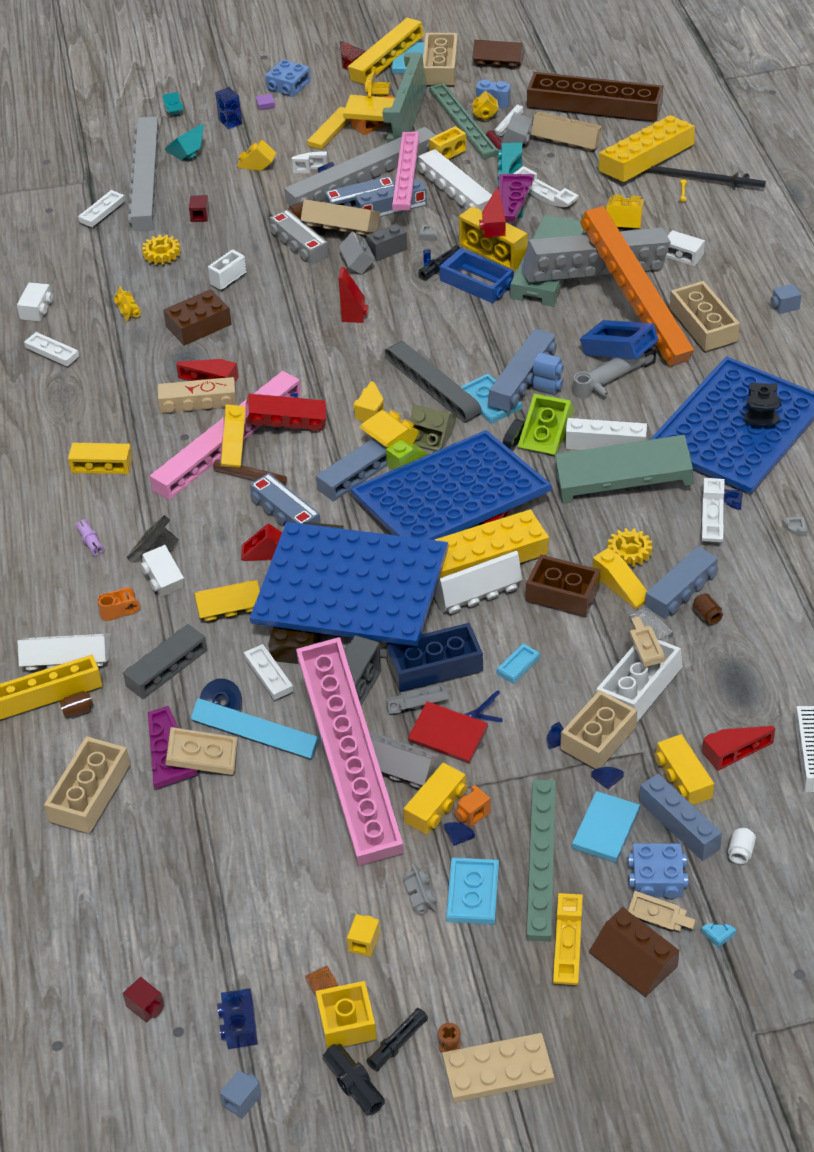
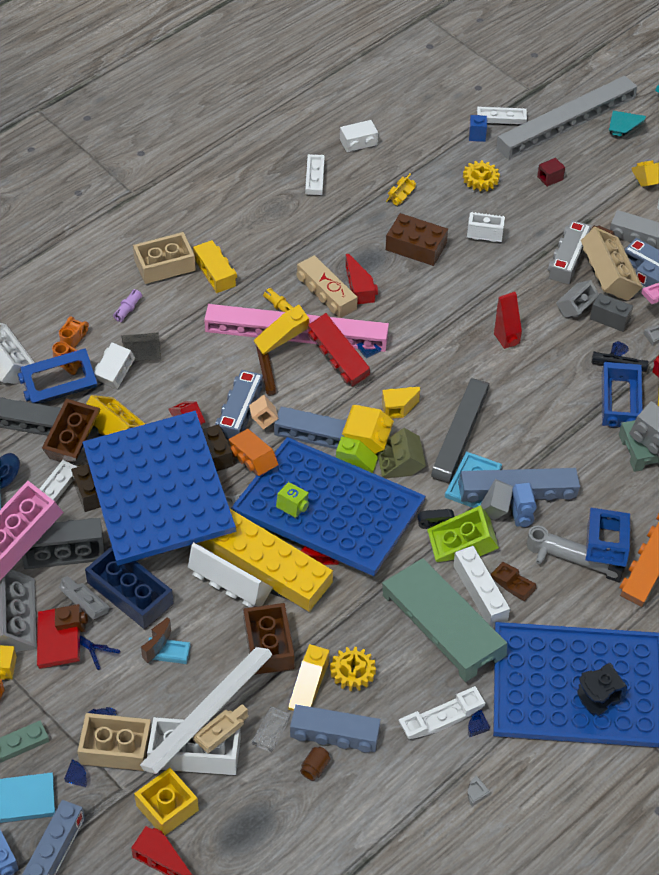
camera: 55 degrees right, 5 degrees up
(59, 485) = (164, 257): none -> tan brick
(87, 589) = (73, 331): none -> orange piece
(104, 226) = (478, 128): none -> blue brick
(123, 633) = (62, 390): none -> blue piece
(184, 433) = (278, 301): none -> yellow pin
(225, 625) = (70, 431): none -> reddish brown slope
(313, 488) = (263, 412): none -> light nougat brick
(356, 510) = (253, 452): none -> orange brick
(438, 501) = (292, 500): none -> lime brick
(438, 711) = (70, 617): none -> reddish brown bracket
(510, 657) = (160, 635): none -> reddish brown slope
(533, 383) = (497, 499): none -> light grey slope
(620, 414) = (510, 580): none -> reddish brown slope
(622, 644) = (205, 710): none -> white tile
(684, 769) = (109, 828): yellow brick -> none
(686, 715) = (166, 801): none -> yellow brick

